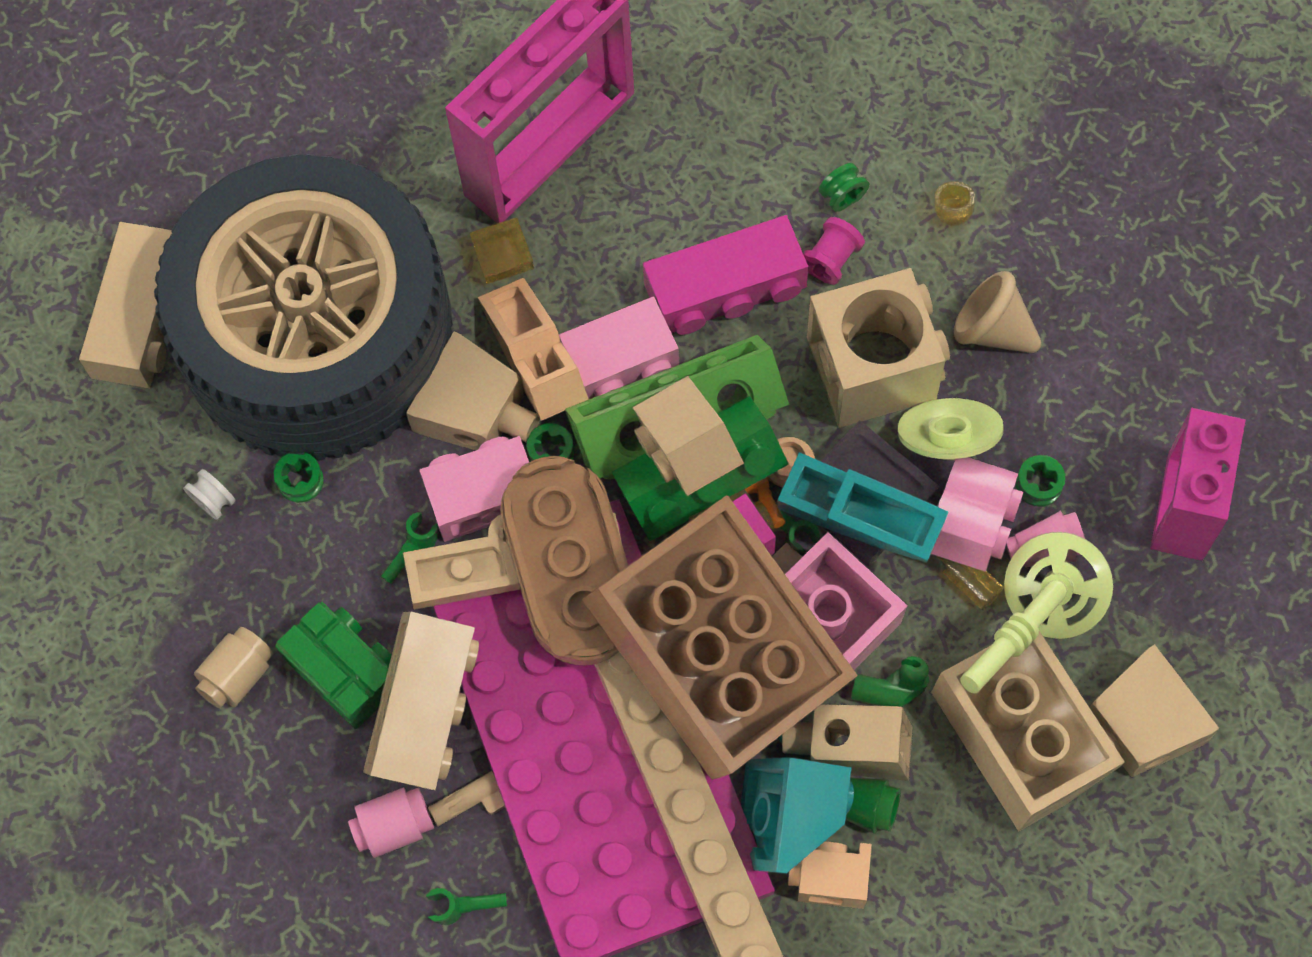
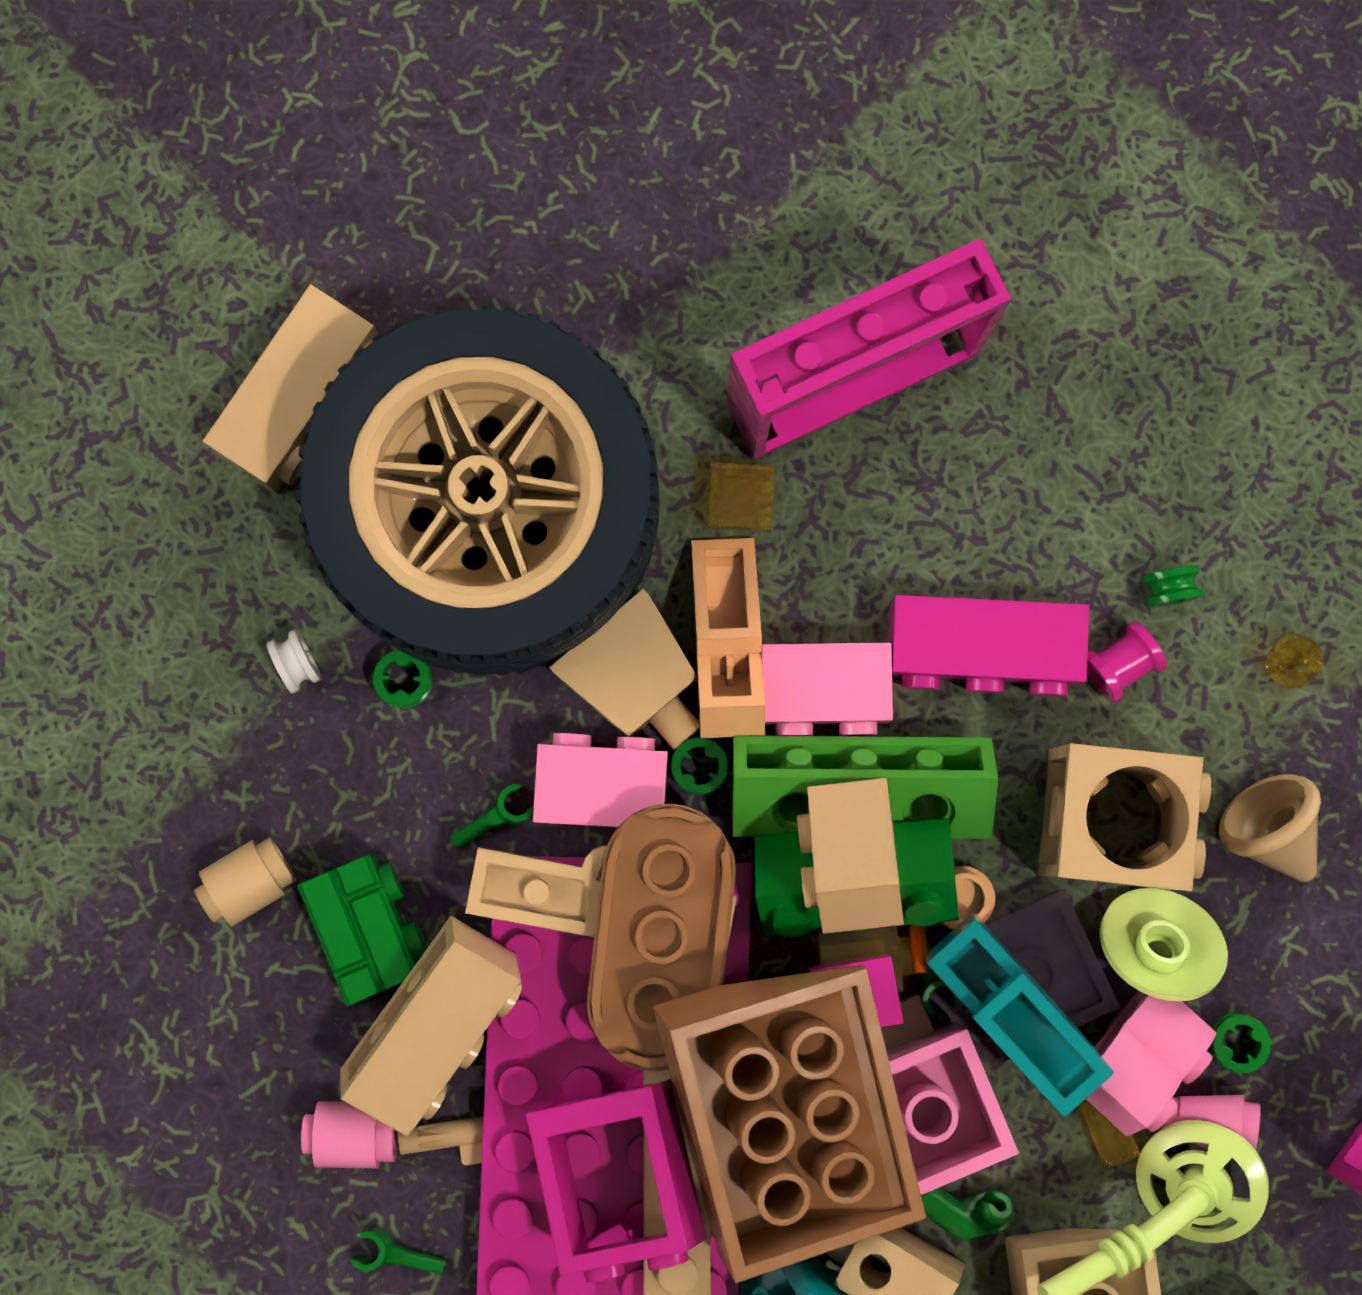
camera: 20 degrees right, 15 degrees up
(575, 703) = (671, 1171): none -> dark pink window

